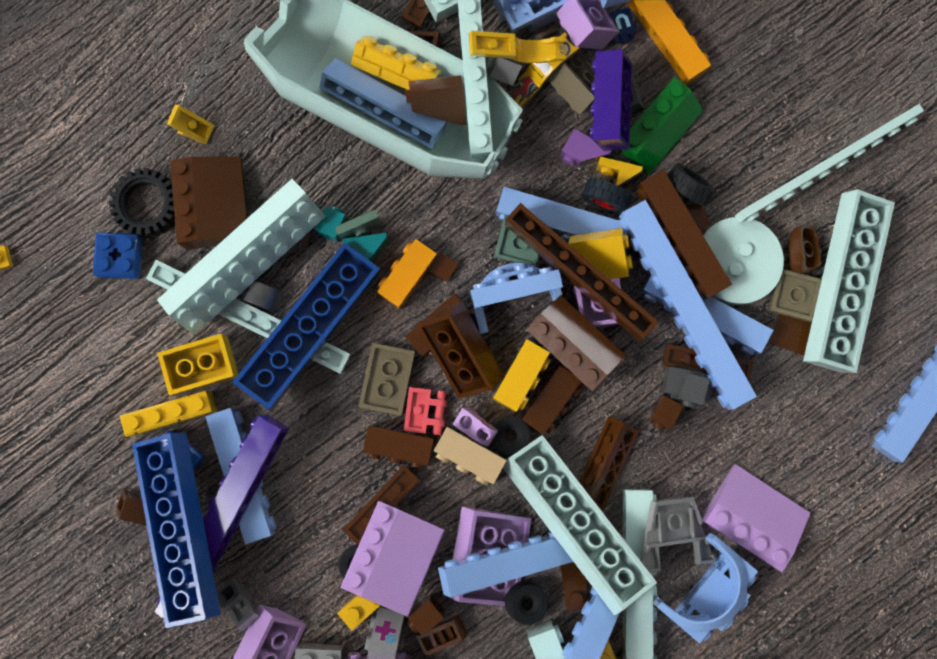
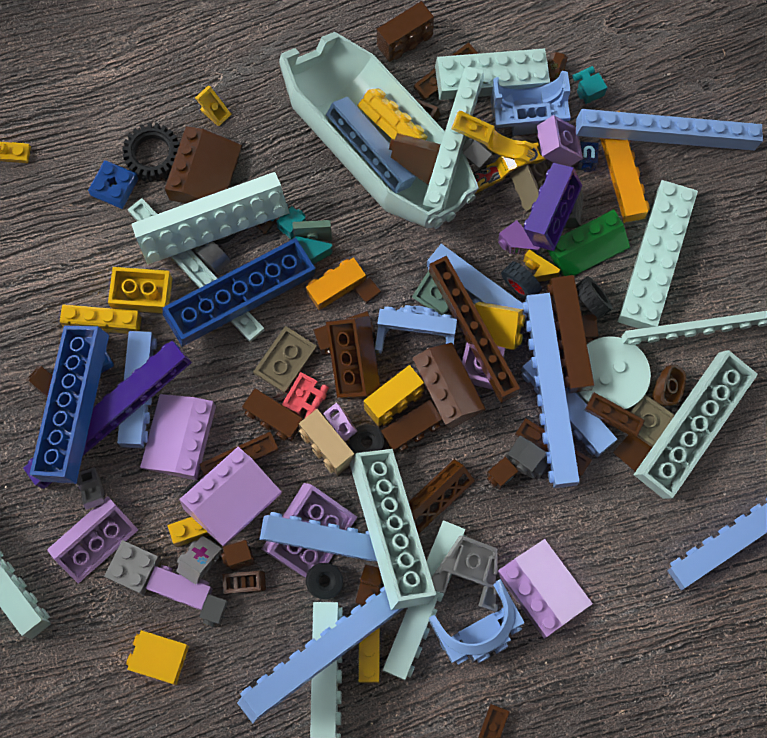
camera: 20 degrees right, 10 degrees down
(307, 508) = (178, 436): none -> lavender slope
(738, 110) = (657, 256): none -> light aqua brick
(761, 305) = (614, 415): none -> reddish brown tile

